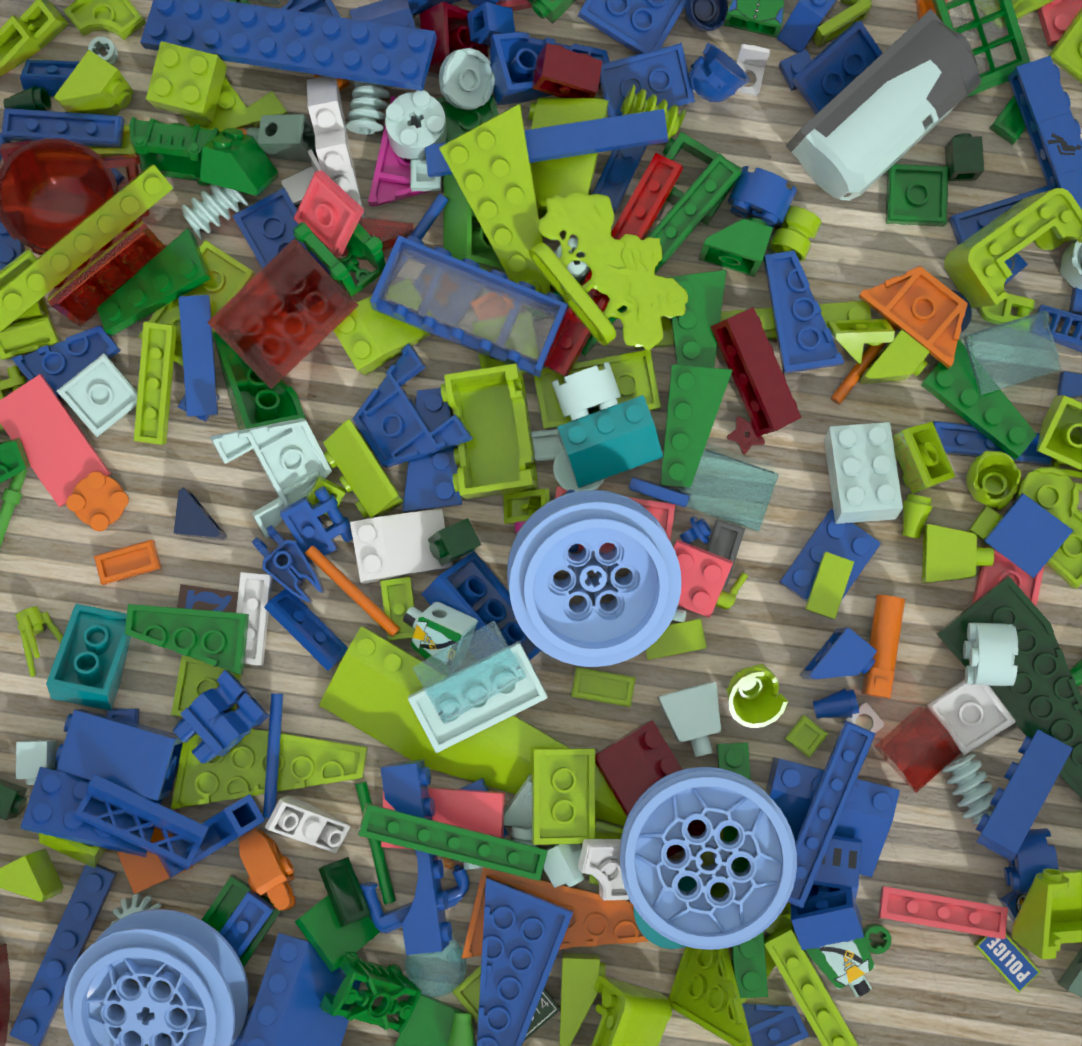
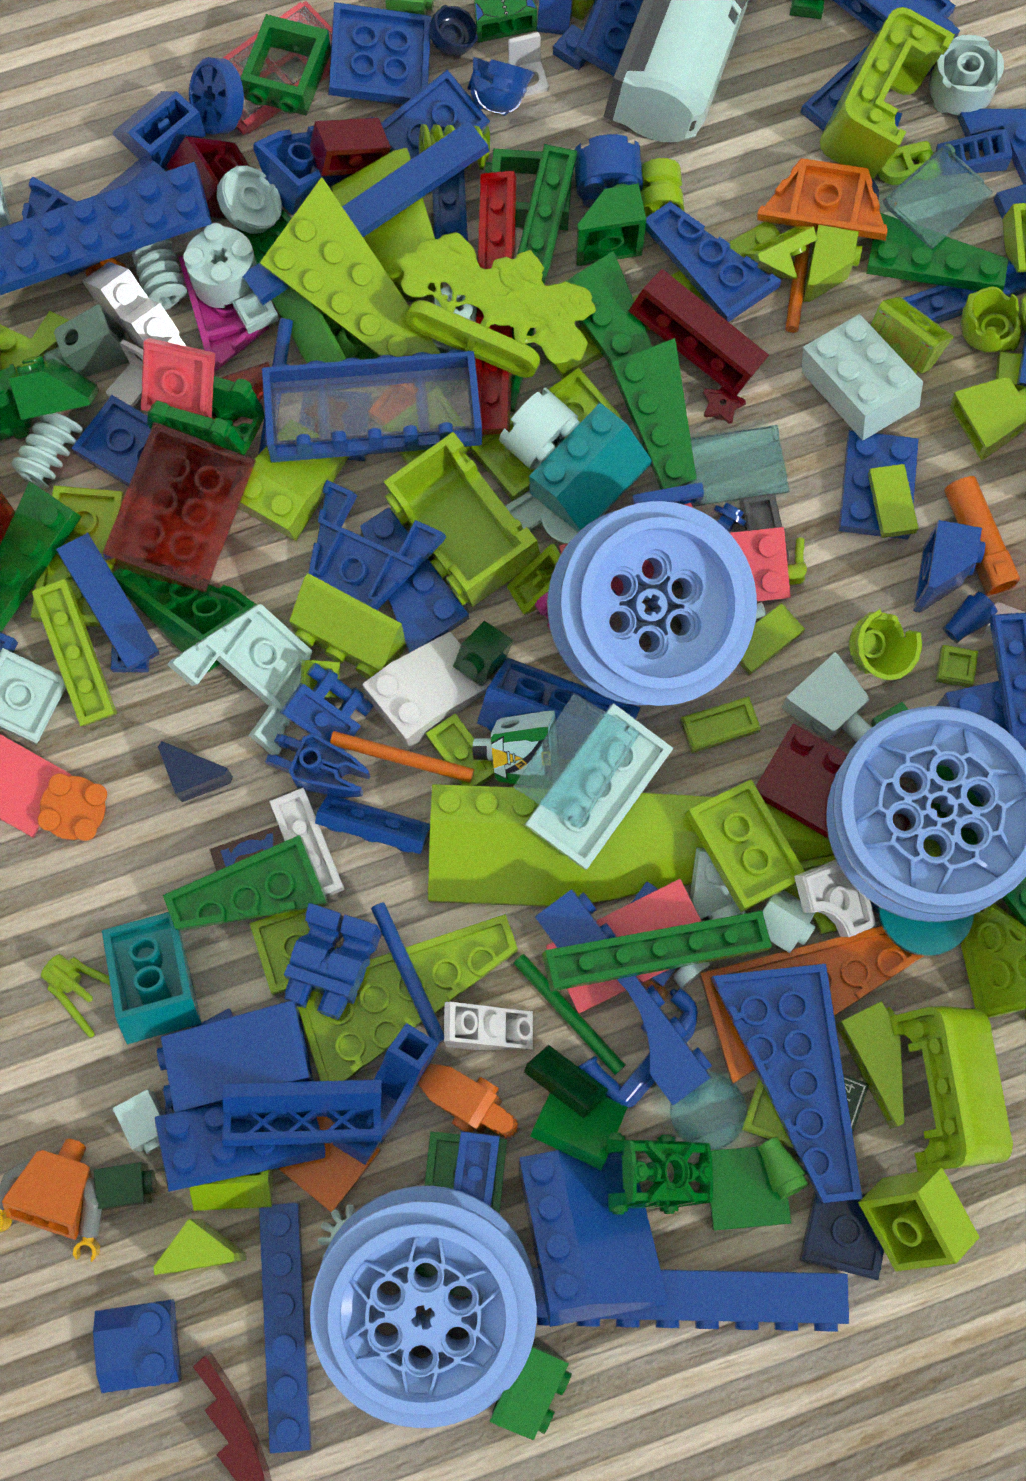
camera: 30 degrees left, 10 degrees down
(127, 562) = (137, 858): orange tile -> none
(489, 20) = (238, 139): blue brick -> none
(915, 514) = (937, 394): lime cone -> none
(917, 195) = (757, 104): green tile -> none
(964, 157) = (783, 48): dark green brick -> none

